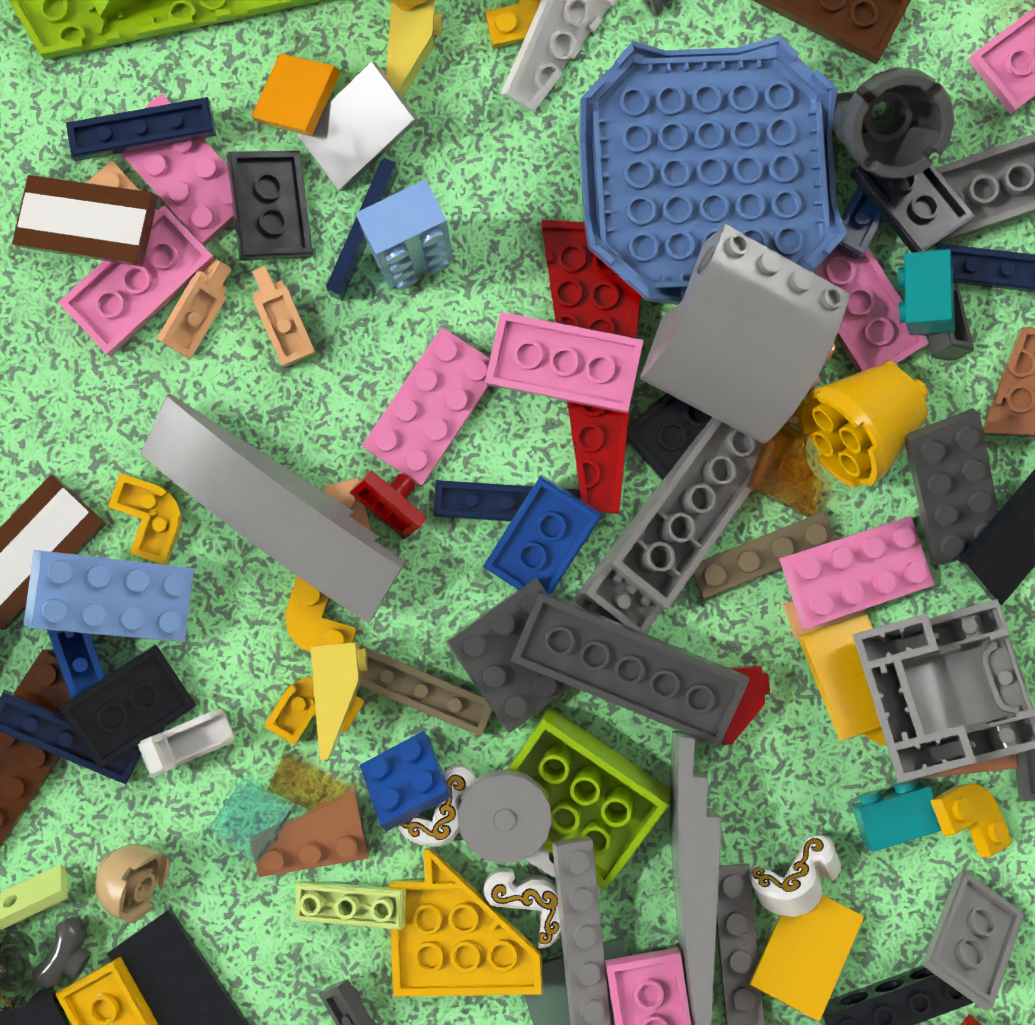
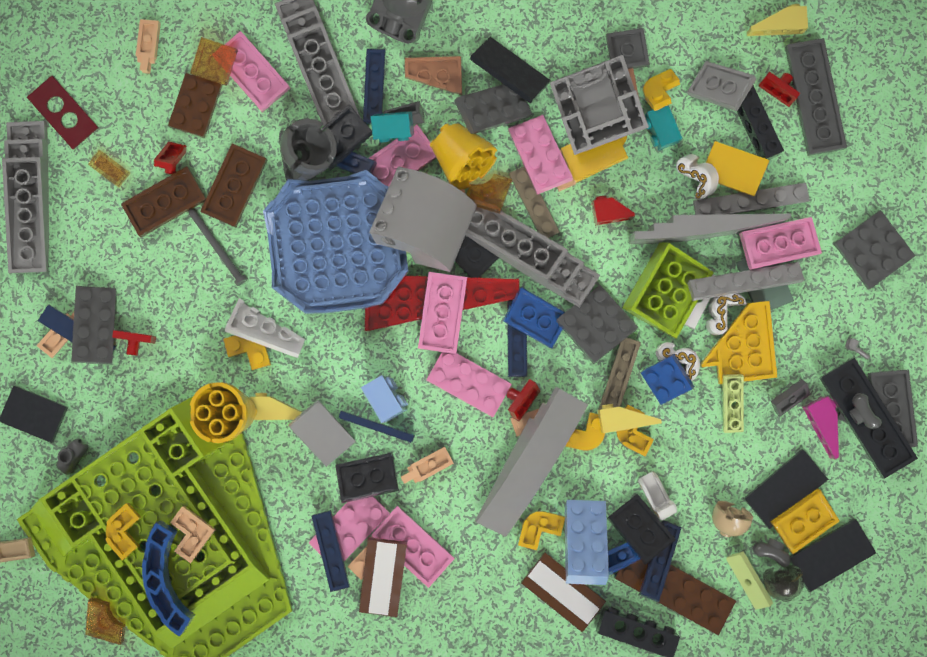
camera: 90 degrees left, 0 degrees up
(196, 309) = (426, 512): light nougat hinge -> none
(250, 820) = (694, 459): clear light blue piece -> none
(295, 94) = (305, 468): light orange tile -> none
(304, 784) = (674, 430): clear orange tile -> none
(319, 838) = (700, 421): nougat wing -> none
(504, 816) = (681, 326): light grey wheel -> none
(629, 668) = (600, 267): dark grey plate -> none

